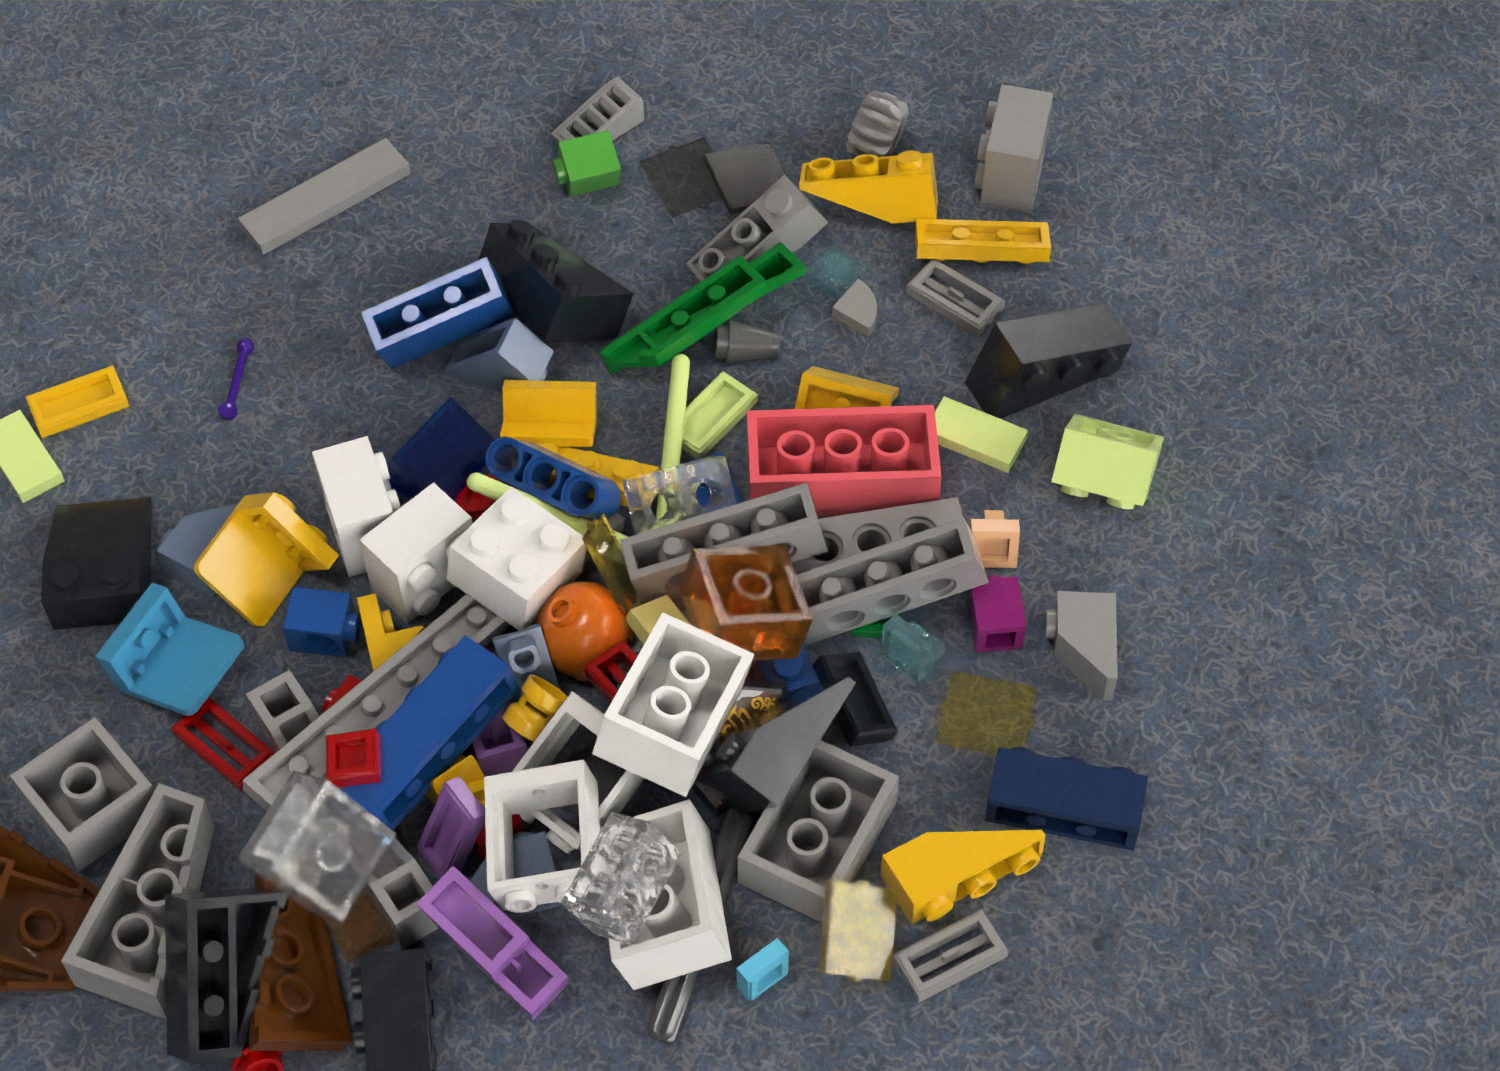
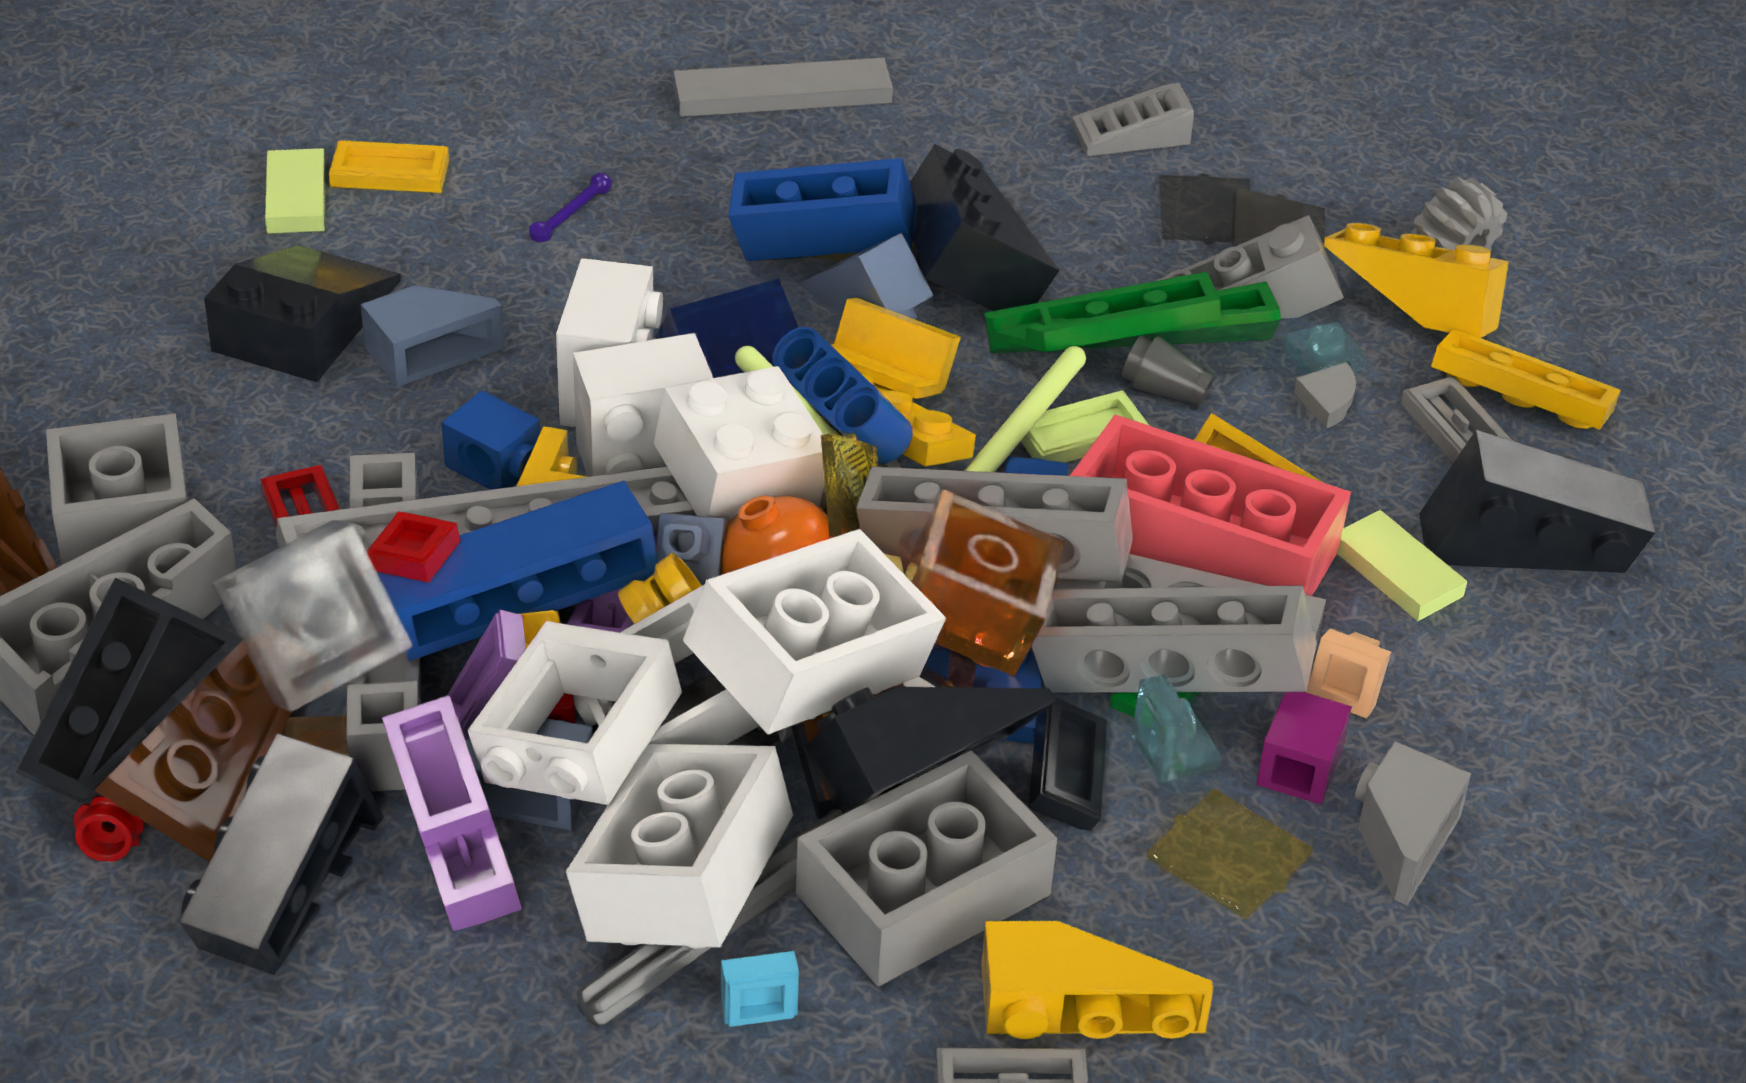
camera: 25 degrees right, 15 degrees down
(166, 655) = (301, 400): dark azure bracket -> none
(262, 555) = (468, 346): yellow bracket -> none
(587, 163) = (1090, 147): bright green brick -> none
(621, 878) = (623, 758): clear brick -> none
(679, 488) = (978, 441): clear brick -> none
(858, 931) = (902, 990): clear yellow piece -> none
(1013, 148) = (1617, 297): light grey brick -> none
(1066, 797) = (1275, 973): dark blue brick -> none
(1107, 461) = (1548, 646): yellowish green slope -> none

